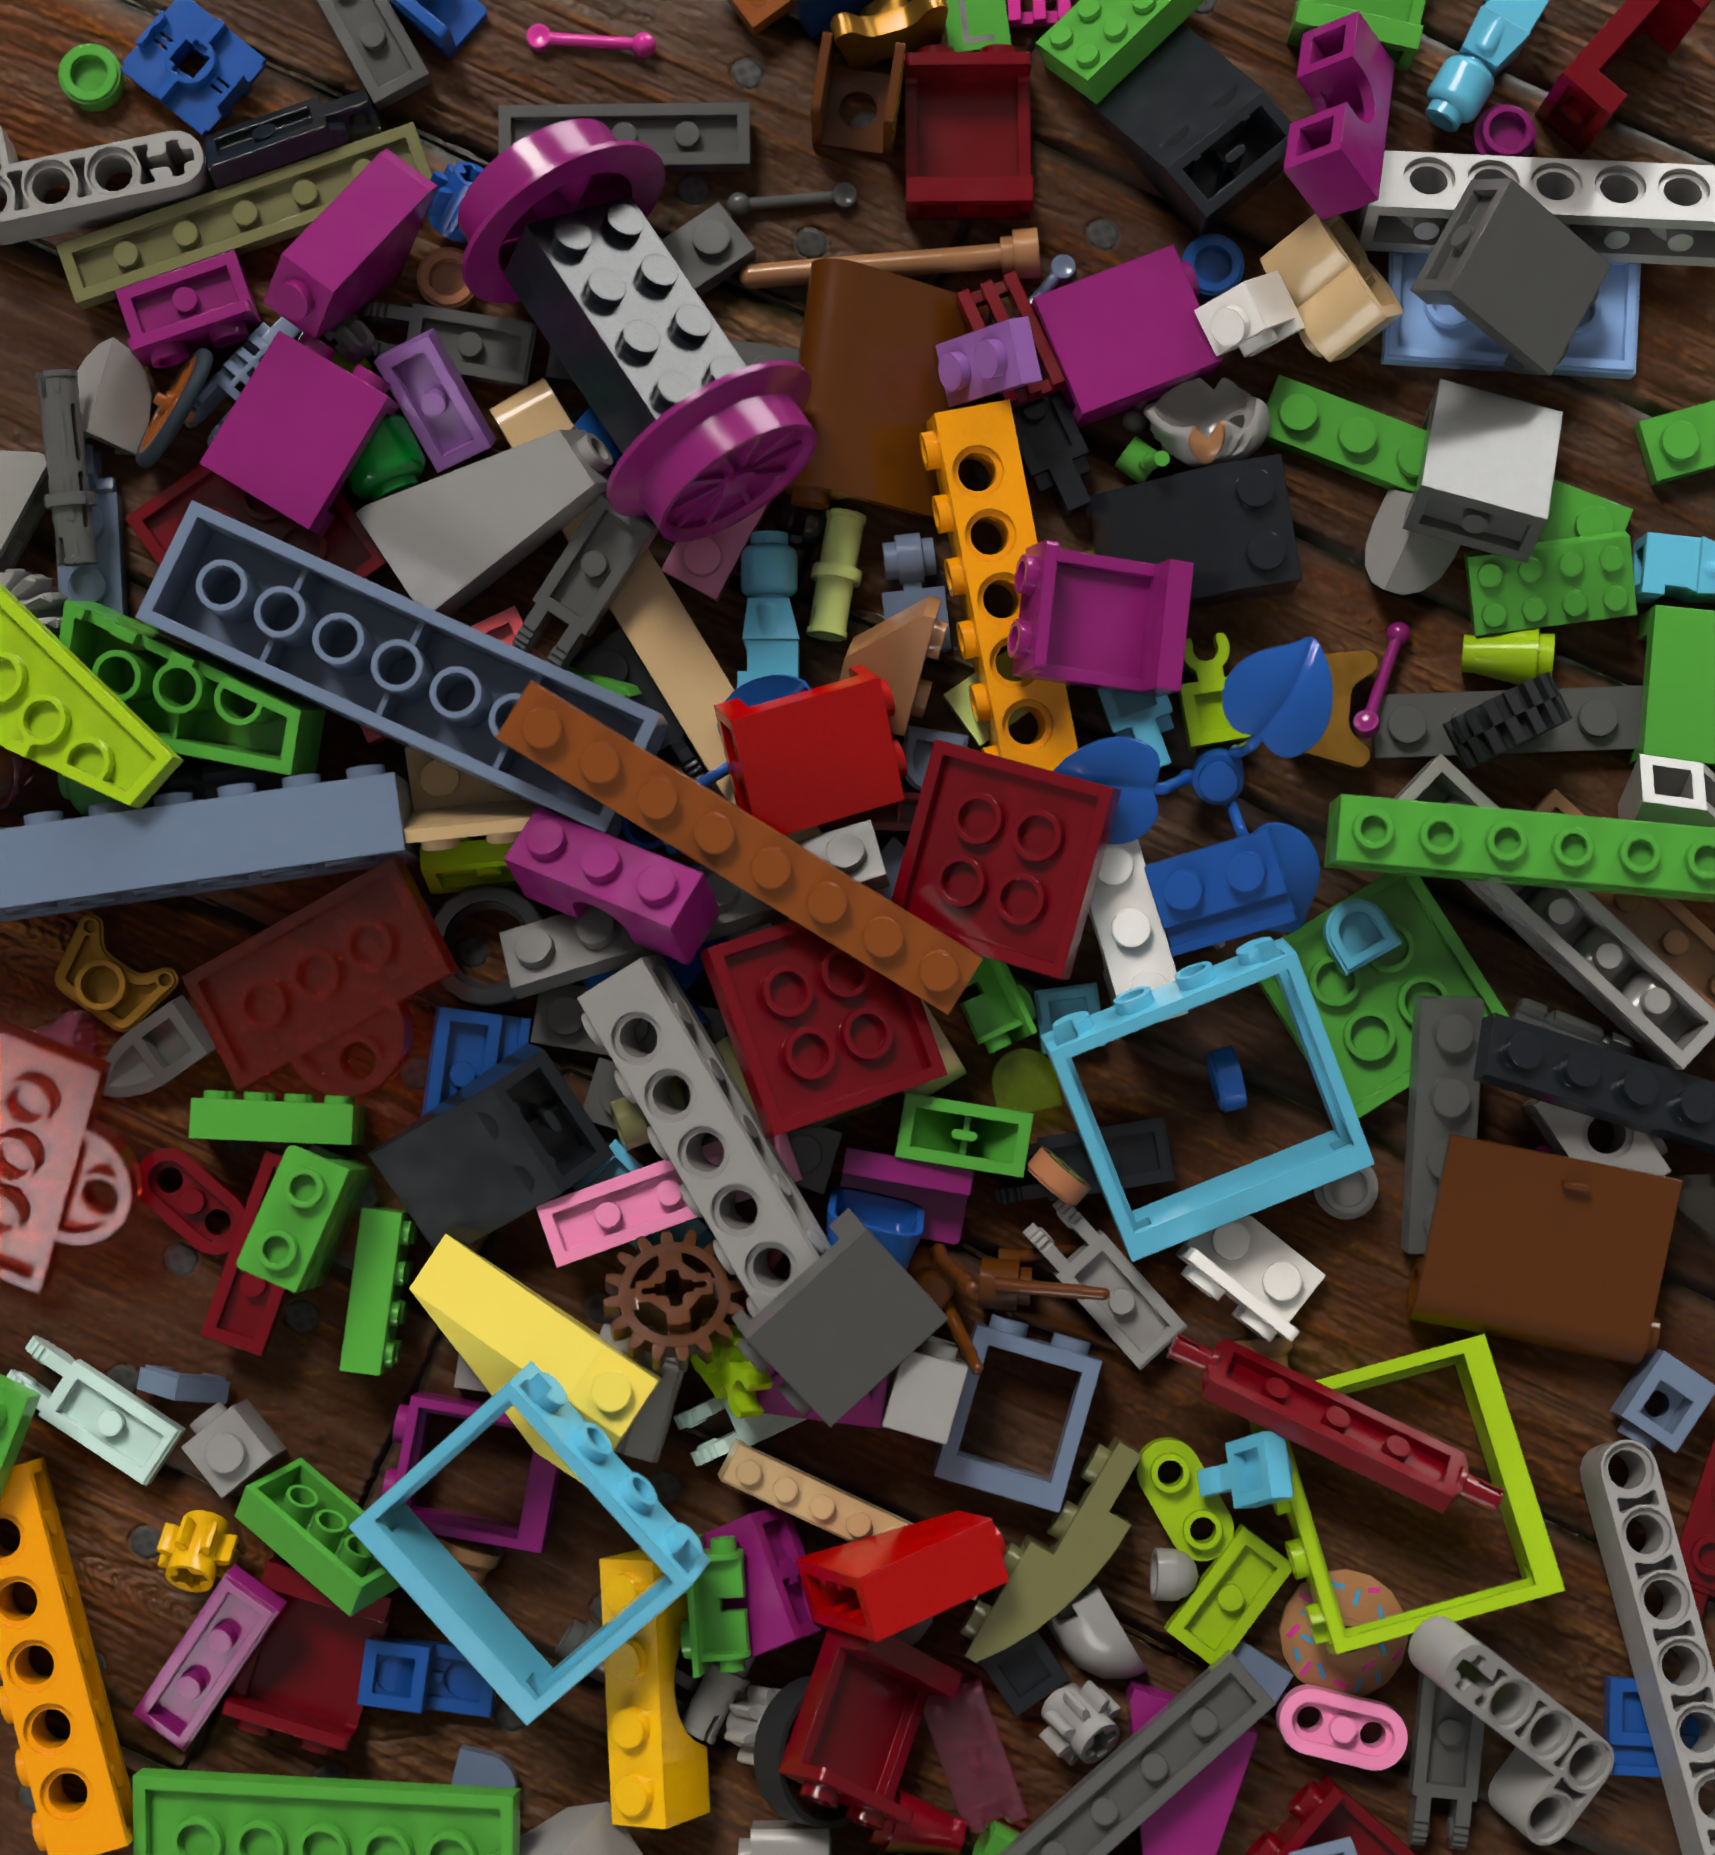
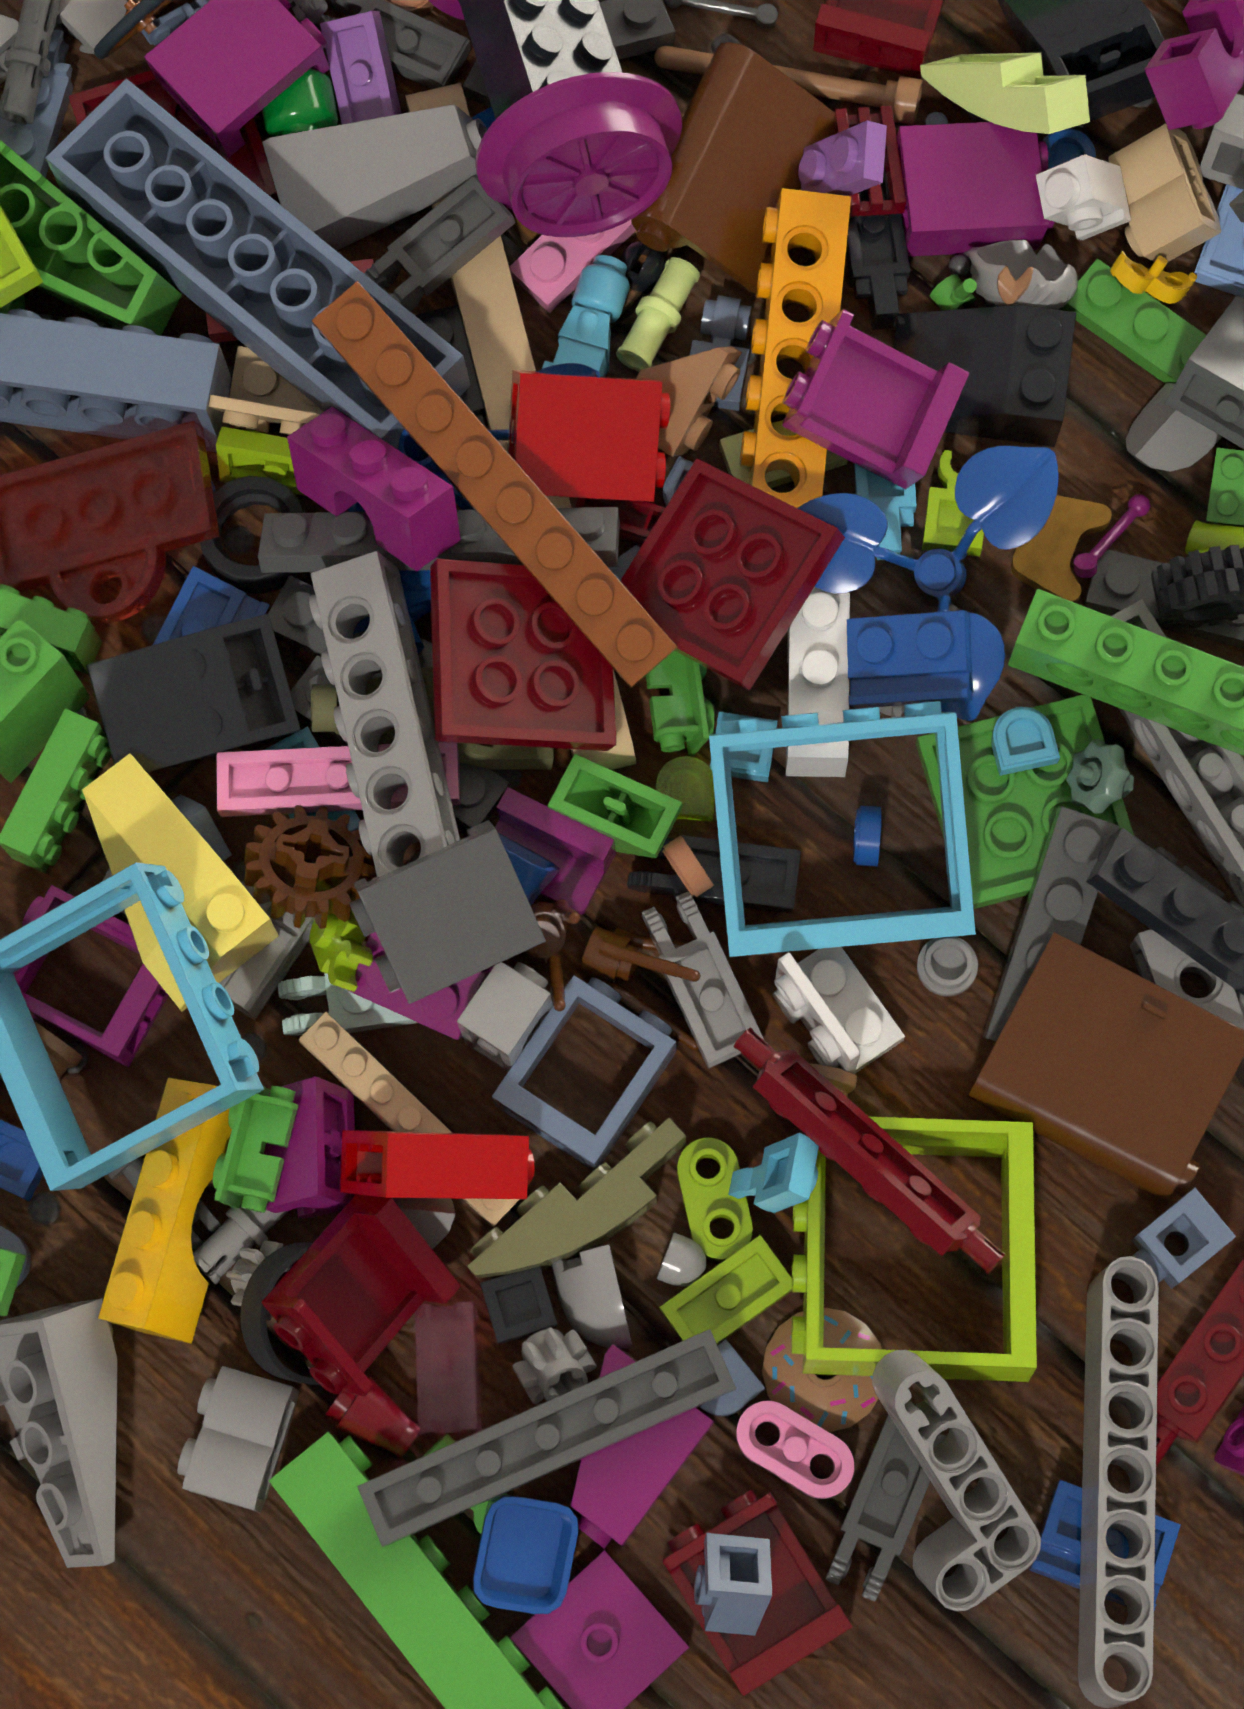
camera: 20 degrees right, 10 degrees down
(538, 1279) = (203, 823): none -> sand blue tile
(1138, 220) = (1011, 91): none -> yellowish green slope
(1351, 382) = (1158, 283): none -> yellow piece
(1448, 953) = (1099, 776): none -> sand green piece

